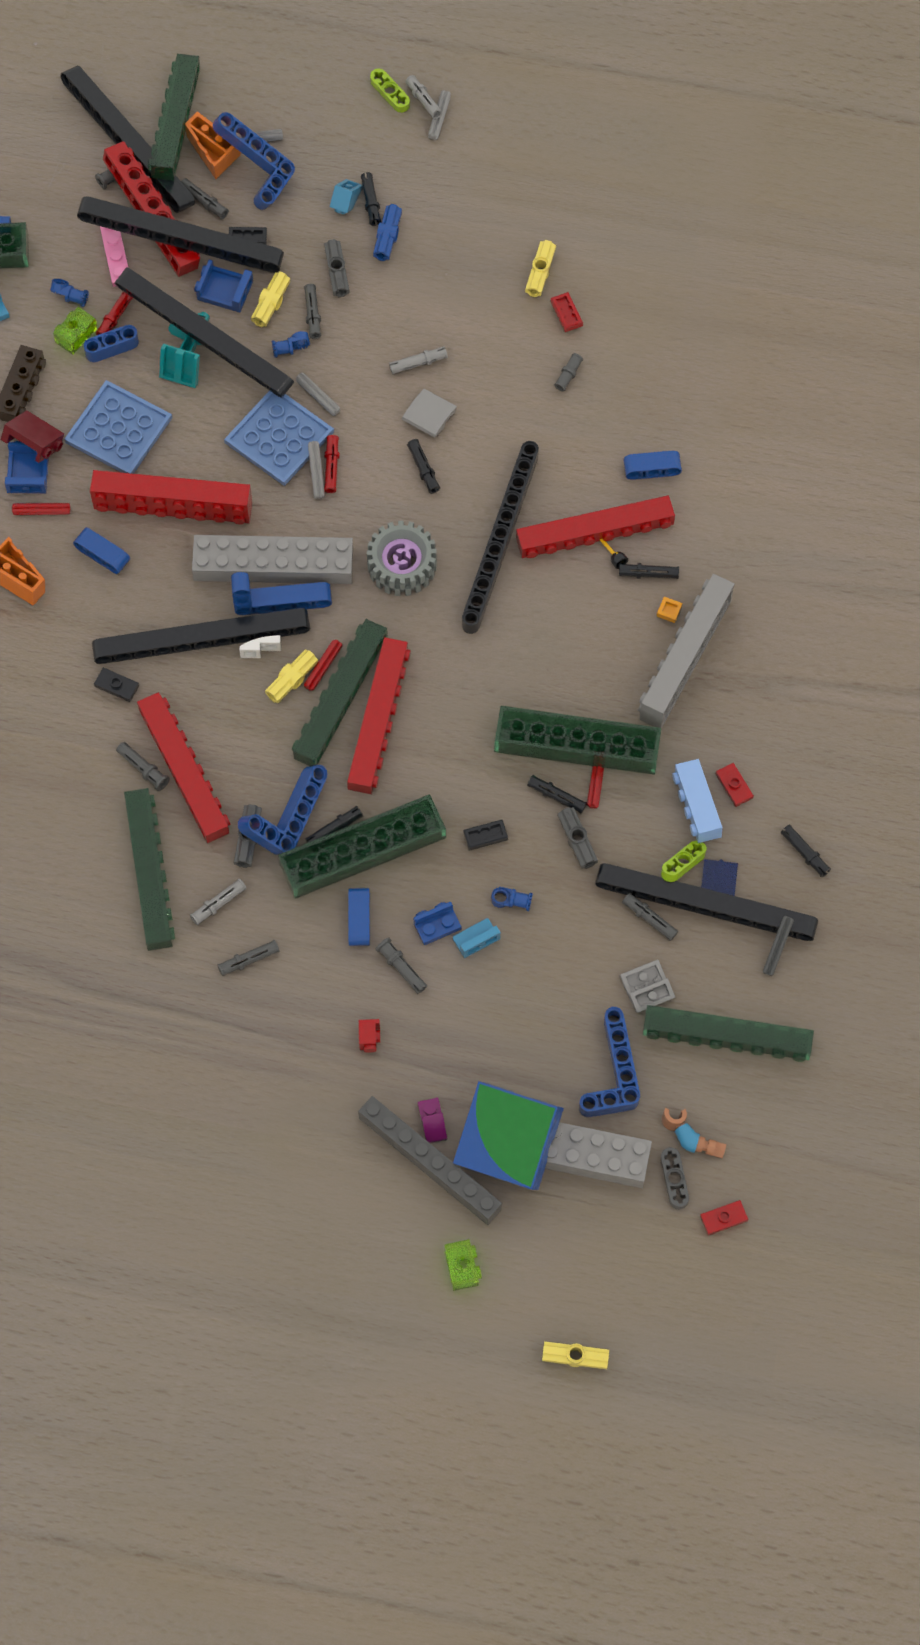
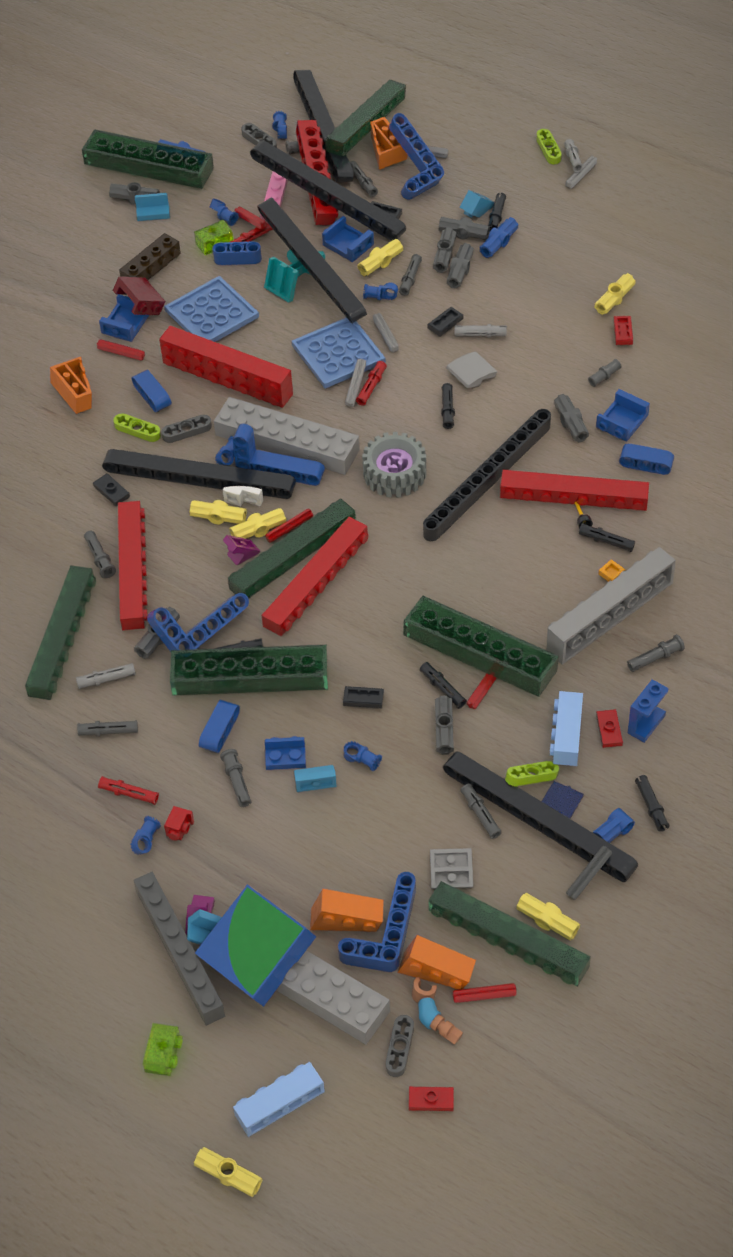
camera: 25 degrees right, 15 degrees down
(65, 183) = (256, 132): none -> dark grey beam
(76, 152) = (279, 124): none -> blue connector
(104, 292) = (250, 217): none -> red axle
(121, 595) = (130, 422): none -> lime beam
(146, 588) = (175, 436): none -> dark grey beam
(220, 598) = (227, 451): none -> blue connector
(243, 675) = (218, 512): none -> light yellow piece
(281, 1017) = (106, 784): none -> red pin
(287, 710) = (240, 549): none -> magenta slope
(341, 1057) = (145, 834): none -> blue connector
(345, 231) = (465, 228): none -> dark grey piece
(361, 283) = (460, 265): none -> dark grey piece
(376, 360) = (445, 321): none -> black plate
(448, 1134) = (200, 926): none -> dark azure panel
(556, 439) = (571, 418): none -> dark grey piece
(571, 1068) = (346, 912): none -> orange wedge
(589, 1271) = (278, 1098): none -> light blue brick
(608, 420) = (623, 415): none -> blue panel
(676, 1088) = (436, 963): none -> orange wedge
(729, 1098) = (484, 993): none -> red axle
(753, 681) = (663, 649): none -> dark grey pin
(756, 1002) = (548, 916): none -> light yellow piece
(768, 757) = (644, 712): none -> blue panel
(781, 886) = (617, 824): none -> blue piece

